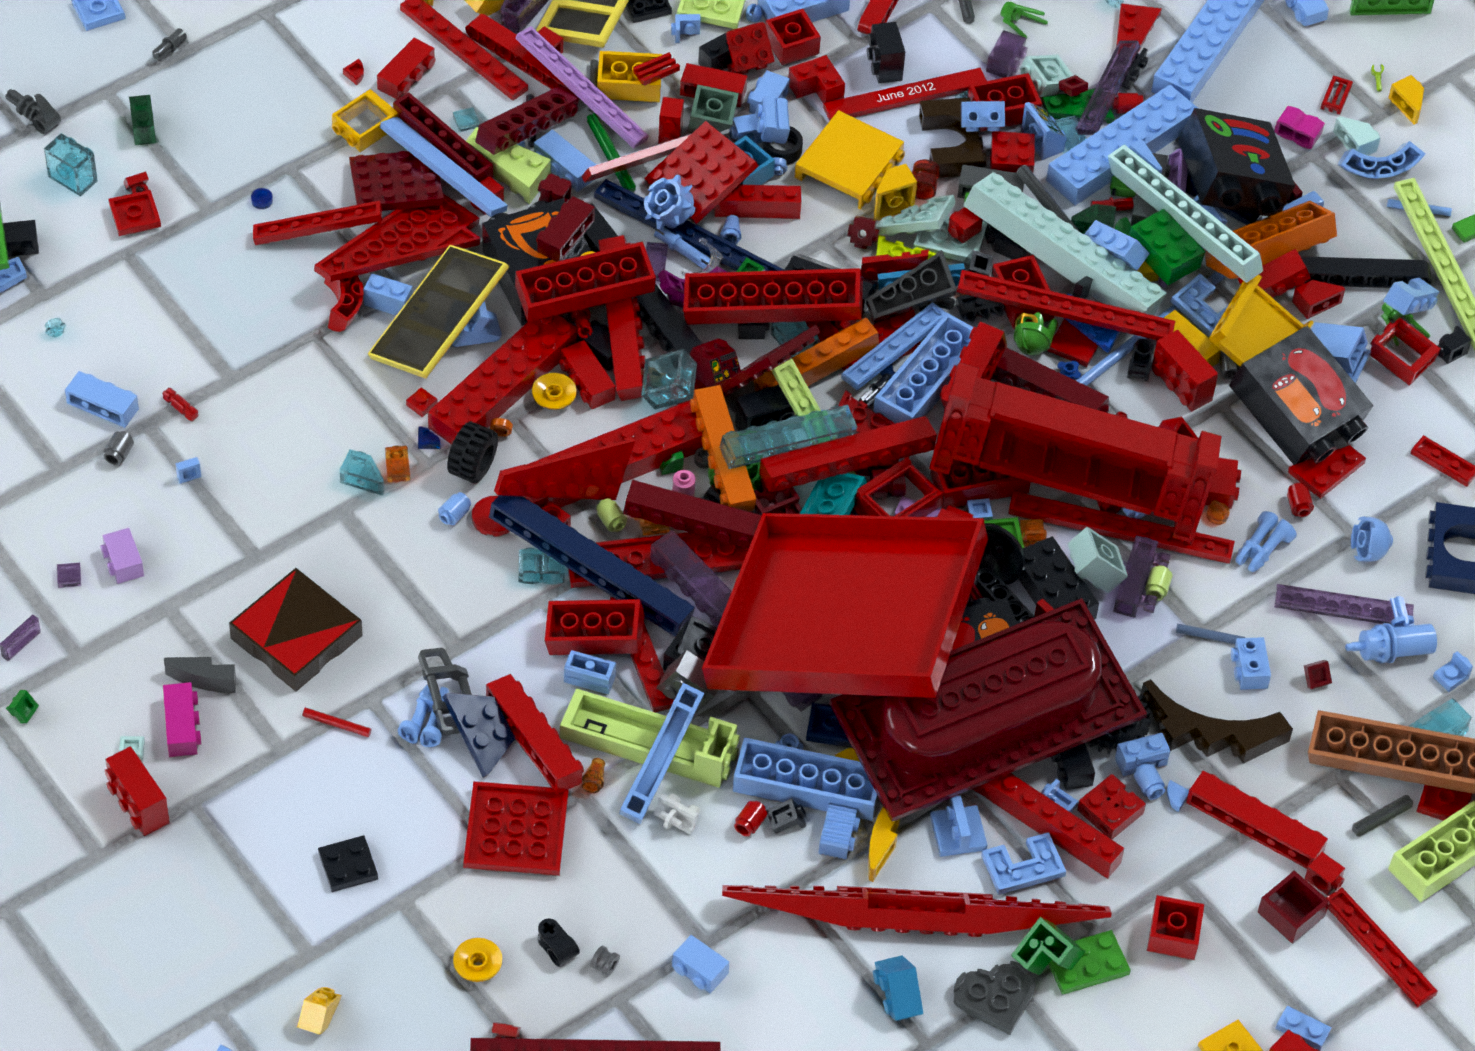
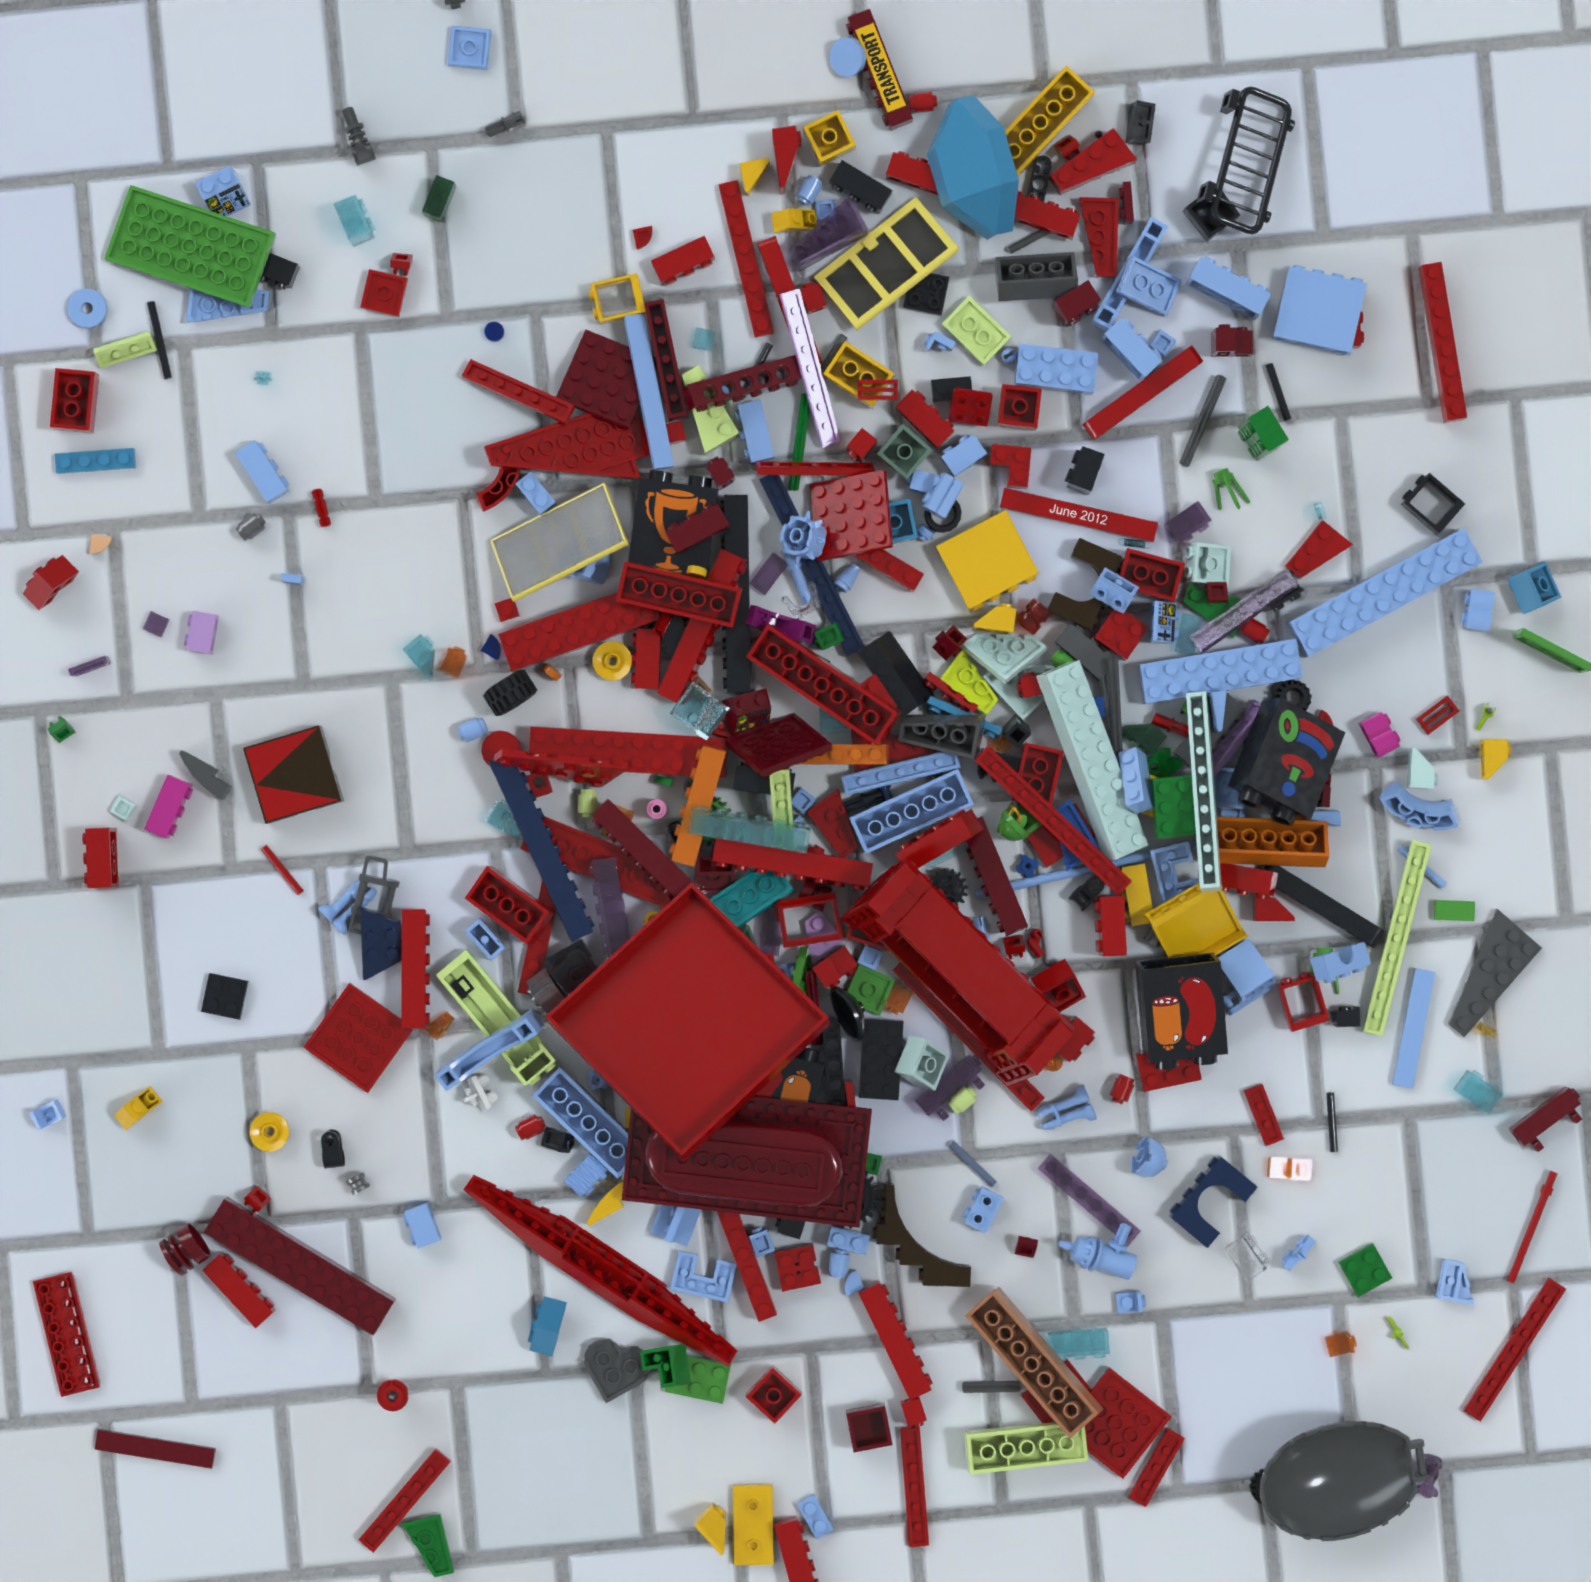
camera: 30 degrees right, 35 degrees up
(1082, 288) = (1078, 808): black tile -> none

